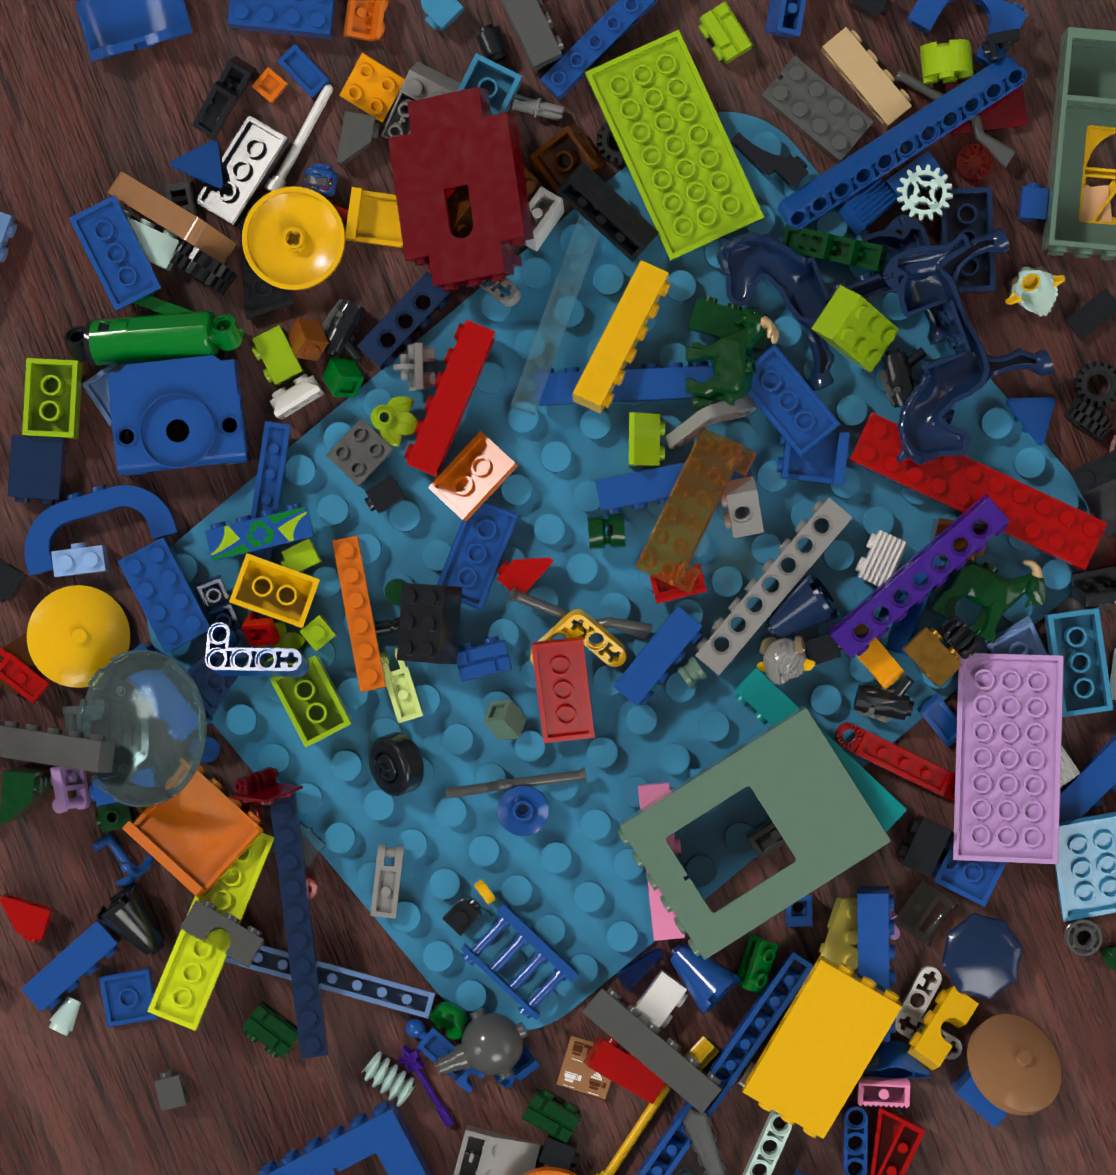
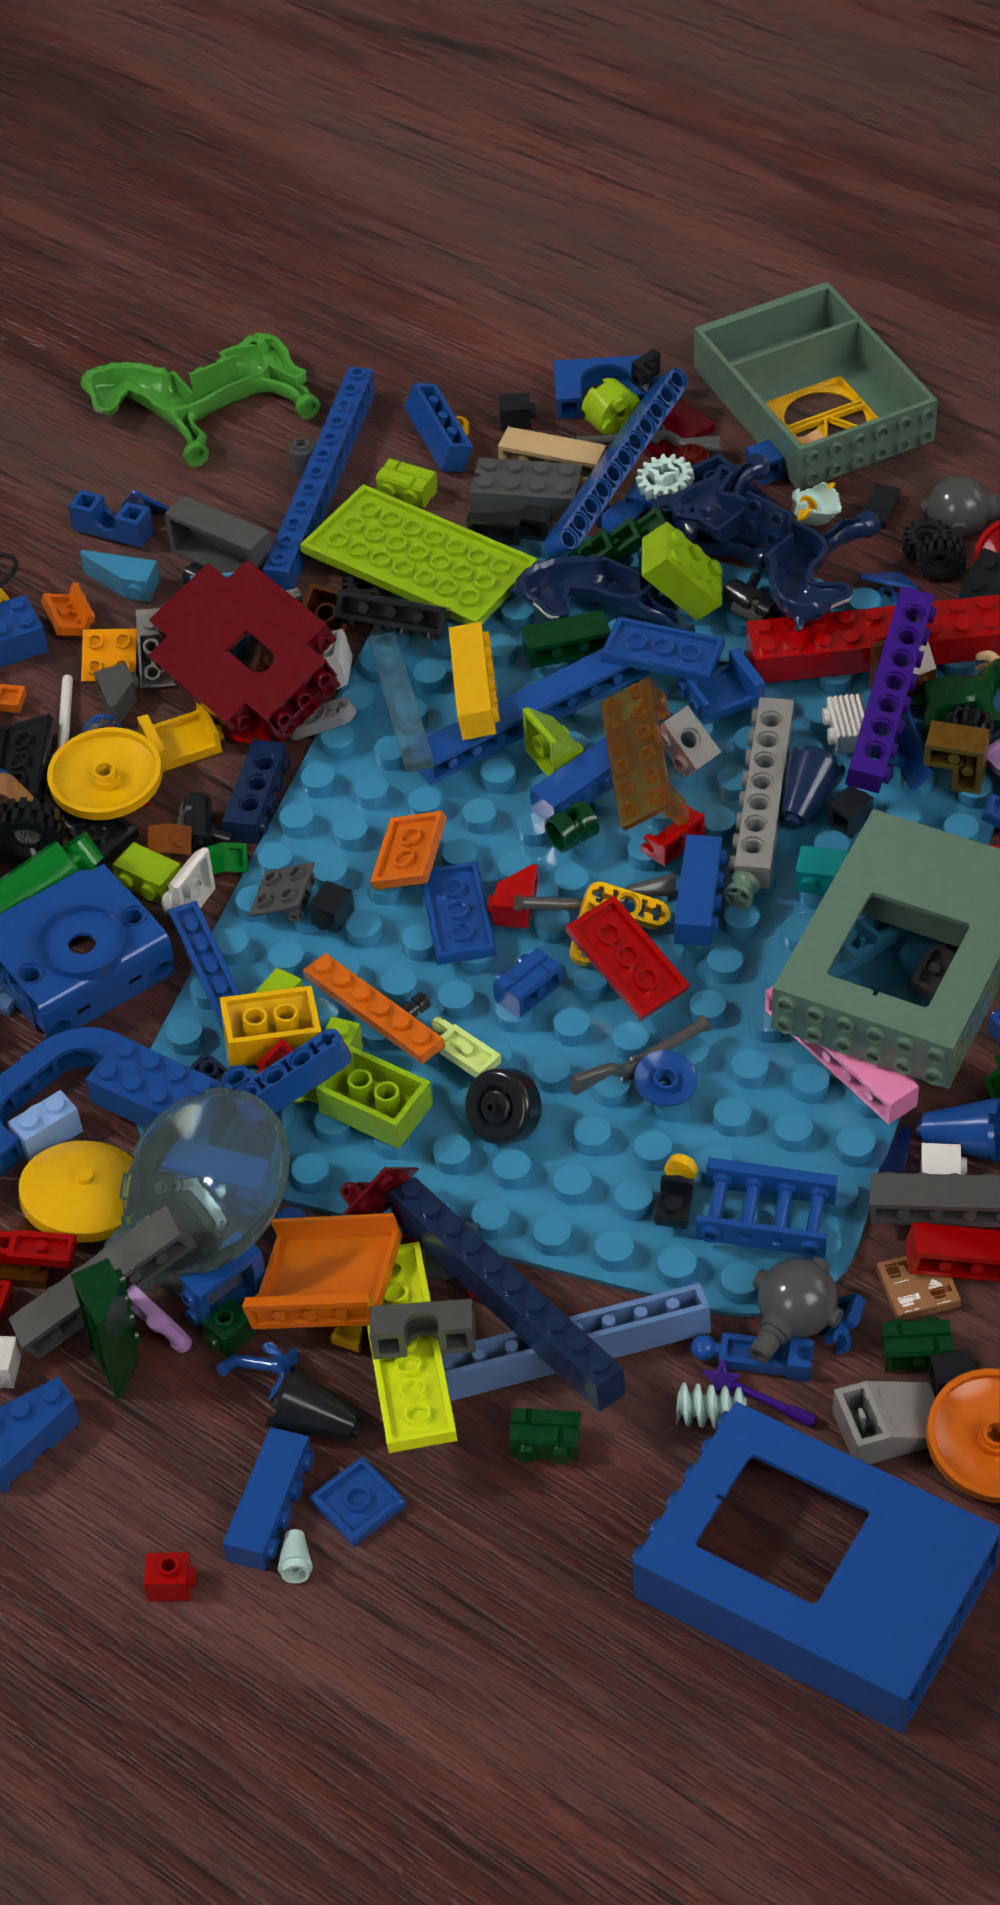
camera: 25 degrees left, 40 degrees down
(27, 917) = (184, 1477): red slope -> none
(171, 1089) = (471, 1560): dark grey brick -> none
(259, 533) = (236, 973): blue brick -> none
(303, 71) = (36, 678): blue tile -> none
(387, 882) = (571, 1217): light grey plate -> none
(393, 591) = (399, 978): dark green tile -> none
(399, 420) = (298, 850): lime plate -> none
(412, 366) = (291, 803): light grey hips -> none
(429, 623) = (450, 970): black brick -> none
(450, 1017) = (734, 1312): green hair -> none
(451, 398) = (342, 800): red brick -> none
(505, 719) = (588, 1018): sand green panel -> none
(706, 417) = (597, 686): light grey beam -> none
(732, 361) = (585, 642): dark green animal -> none
(784, 659) = (822, 825): light grey hair -> none
(879, 661) = (909, 795): light orange beam -> none
(884, 704) = (951, 815): black piece -> none

